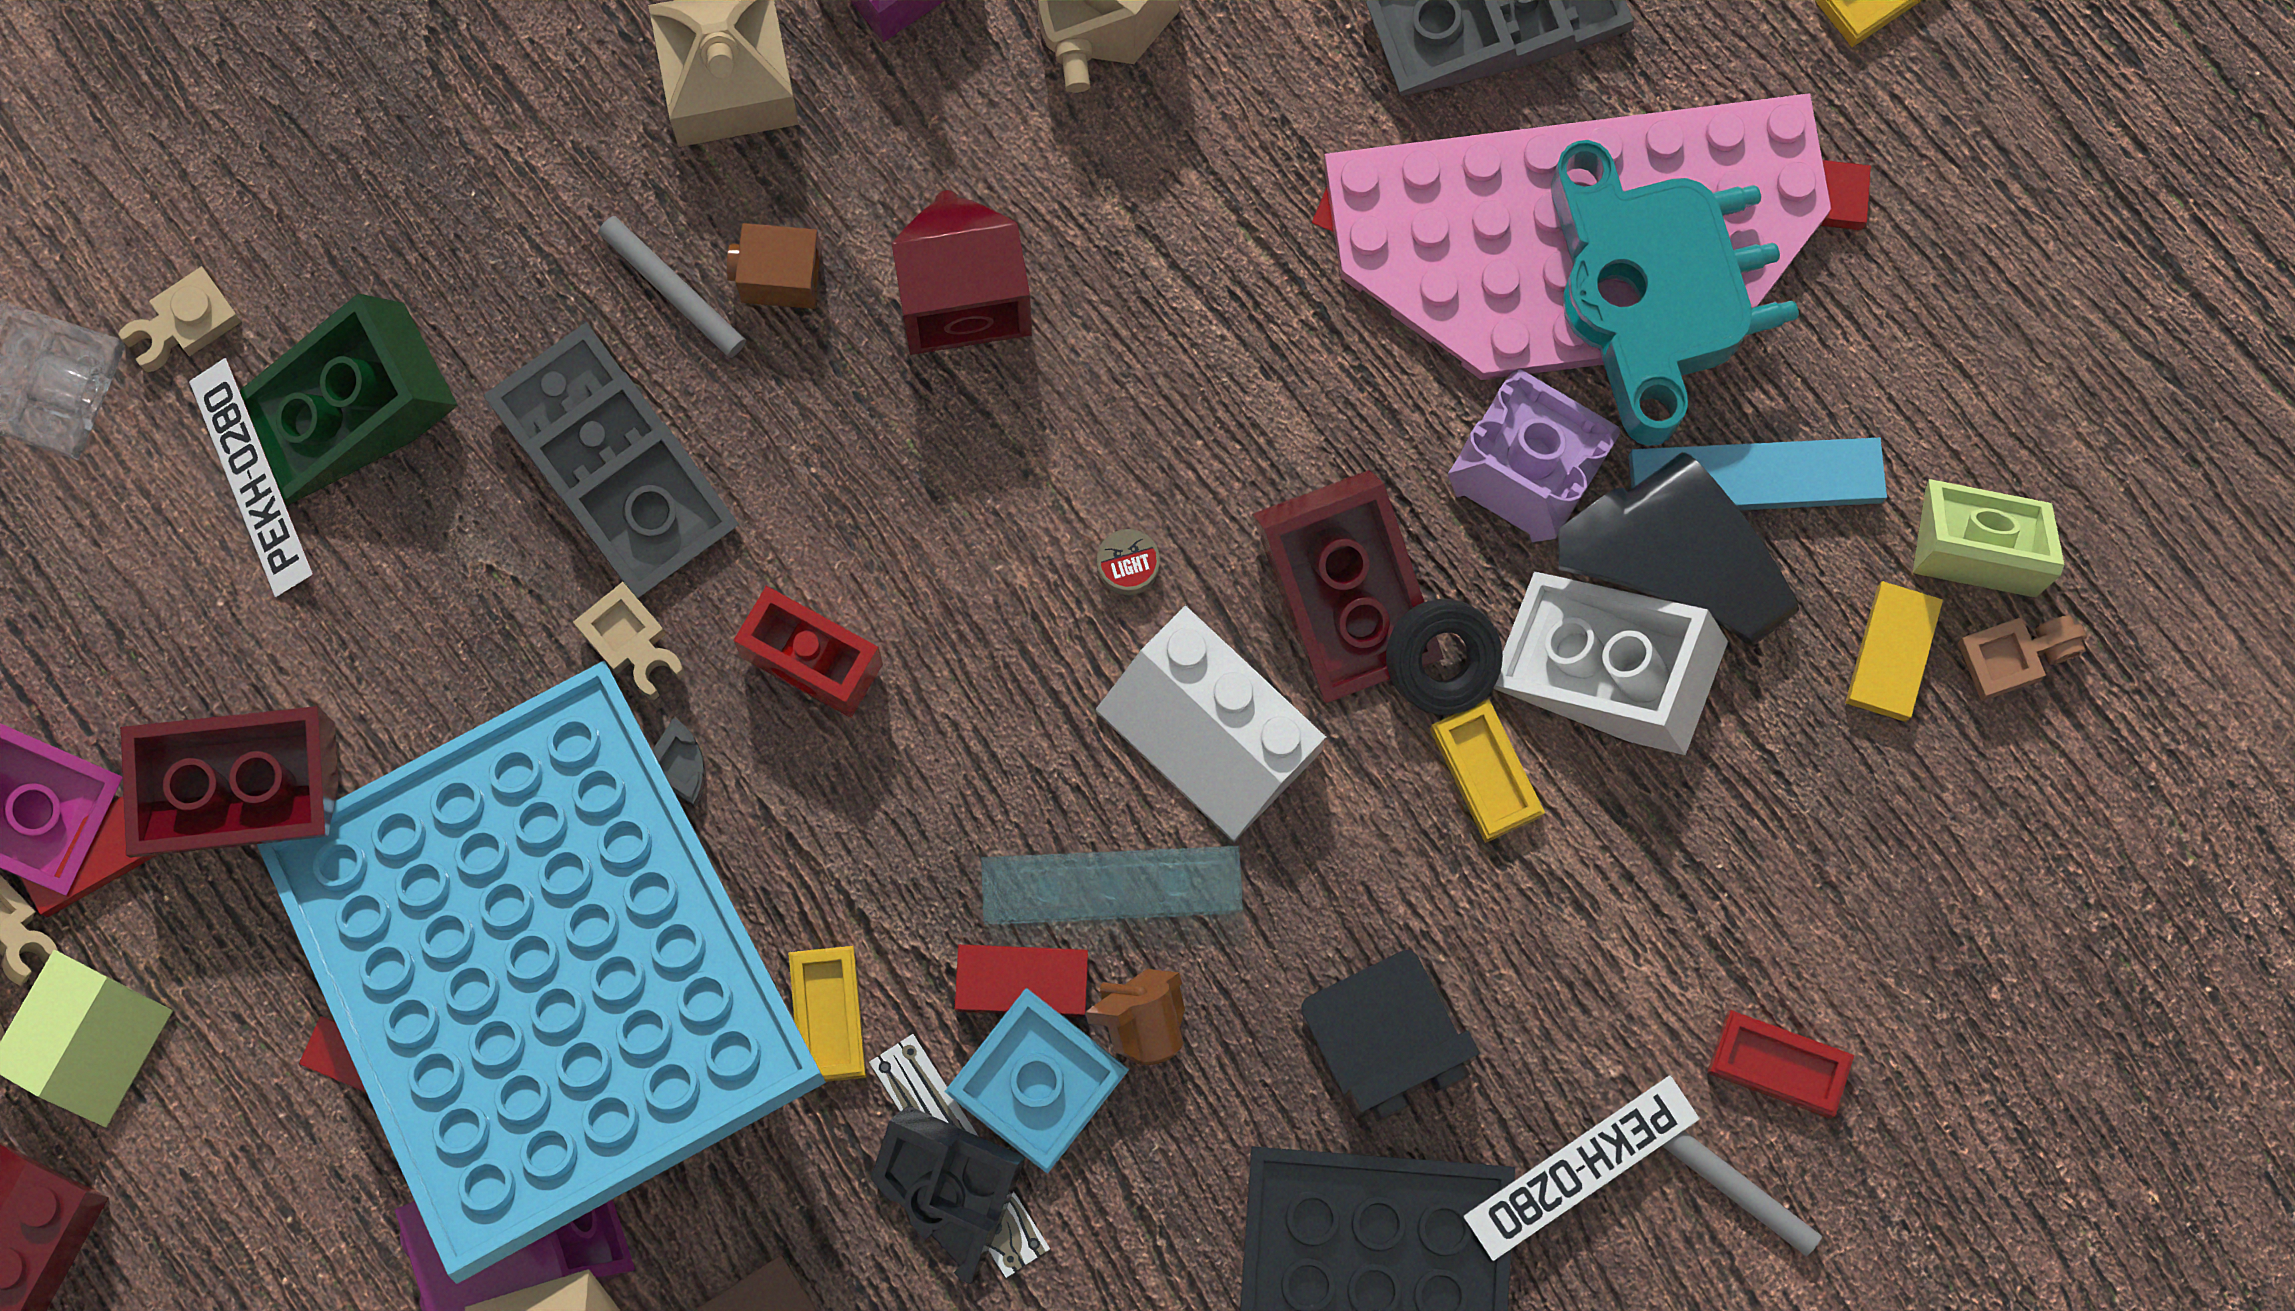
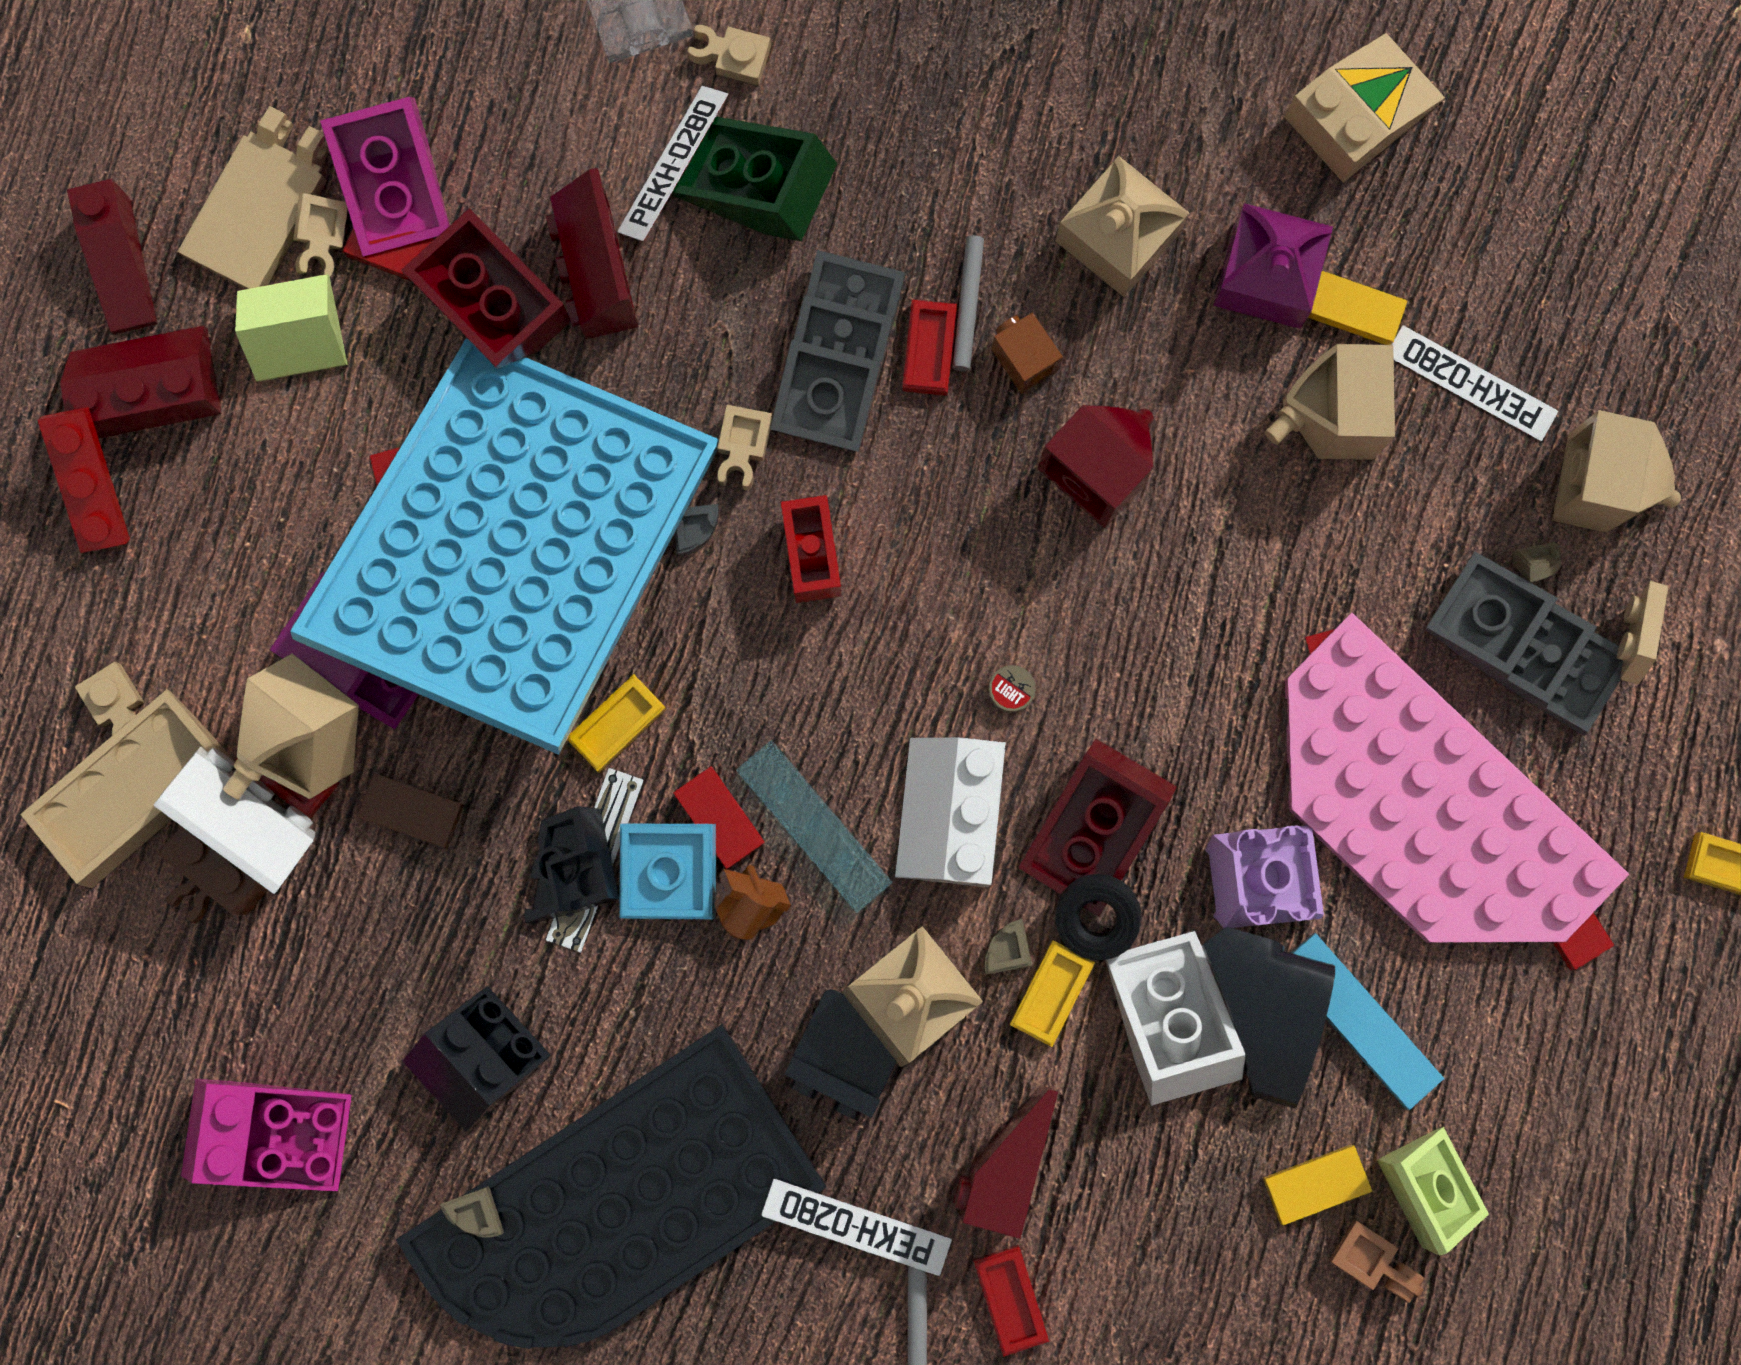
camera: 55 degrees right, 5 degrees up
(286, 639) = (591, 257): none -> dark red slope
(686, 363) = (929, 347): none -> red tile
(1380, 916) = (912, 997): none -> tan piece
(1404, 780) = (1007, 949): none -> dark tan tile
(1643, 955) = (1005, 1173): none -> dark red slope
(1686, 275) = (1448, 884): teal piece -> none

